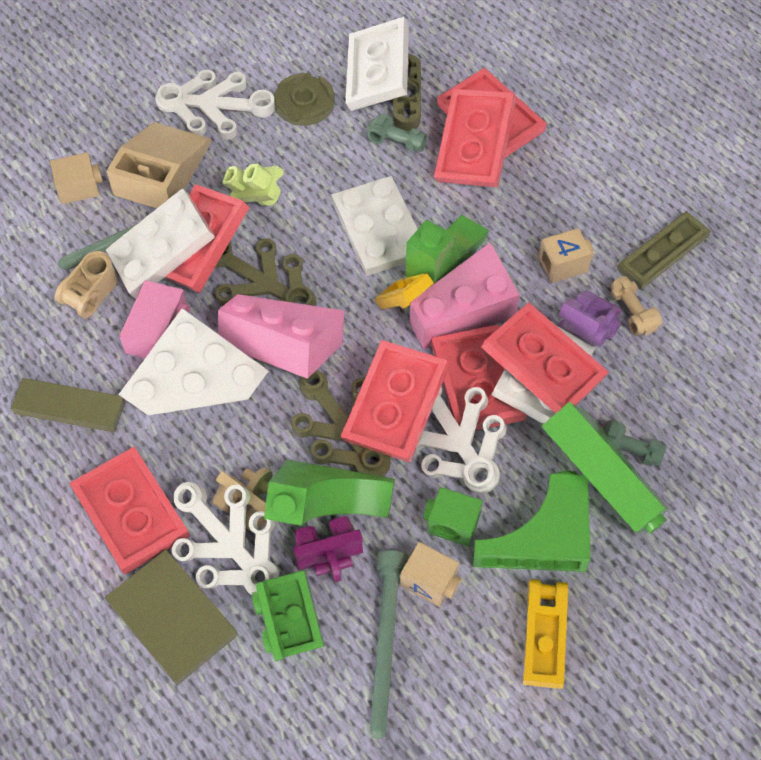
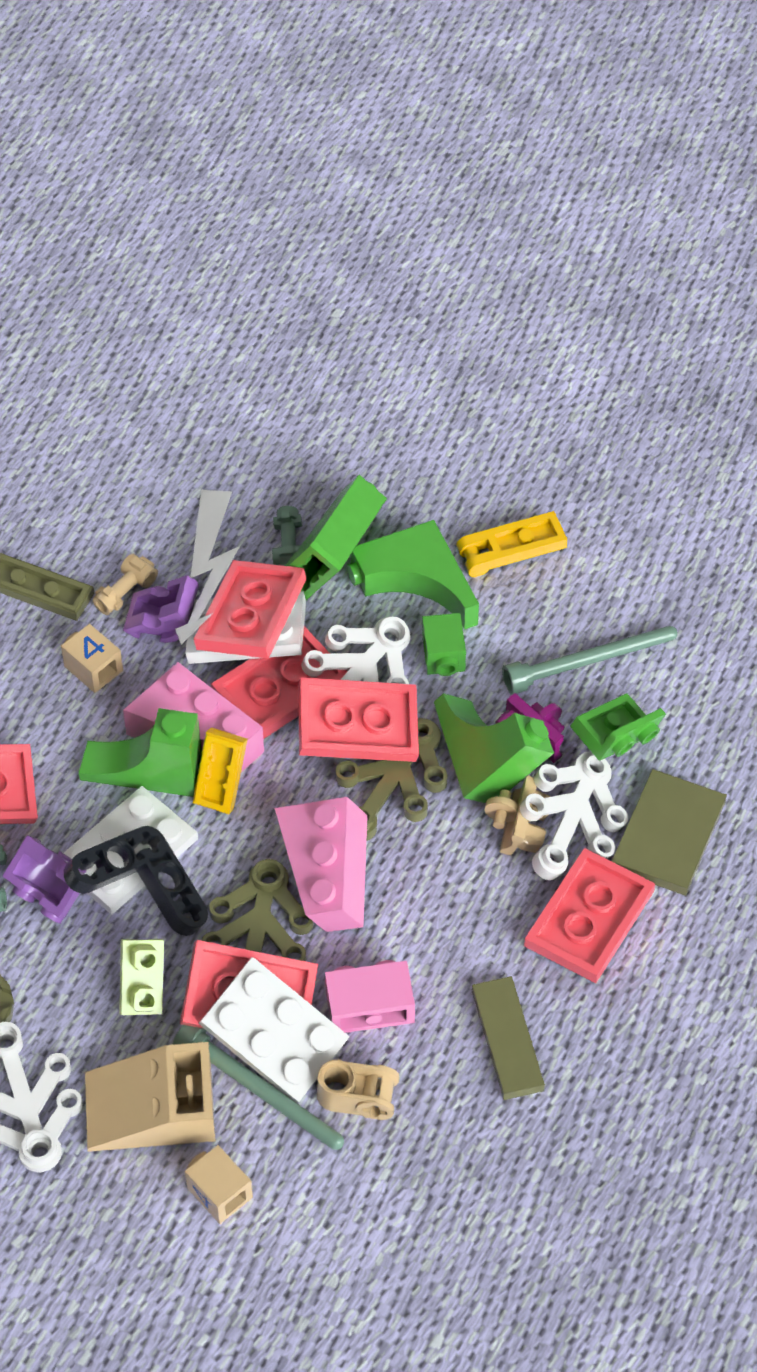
camera: 115 degrees left, 5 degrees down
(192, 370) = (413, 927): white plate -> none
(341, 214) = (147, 865): none -> black beam
(373, 161) = (39, 876): none -> medium lavender cylinder
(430, 575) = (511, 639): tan brick -> none
(682, 393) = (210, 517): none -> white sticker

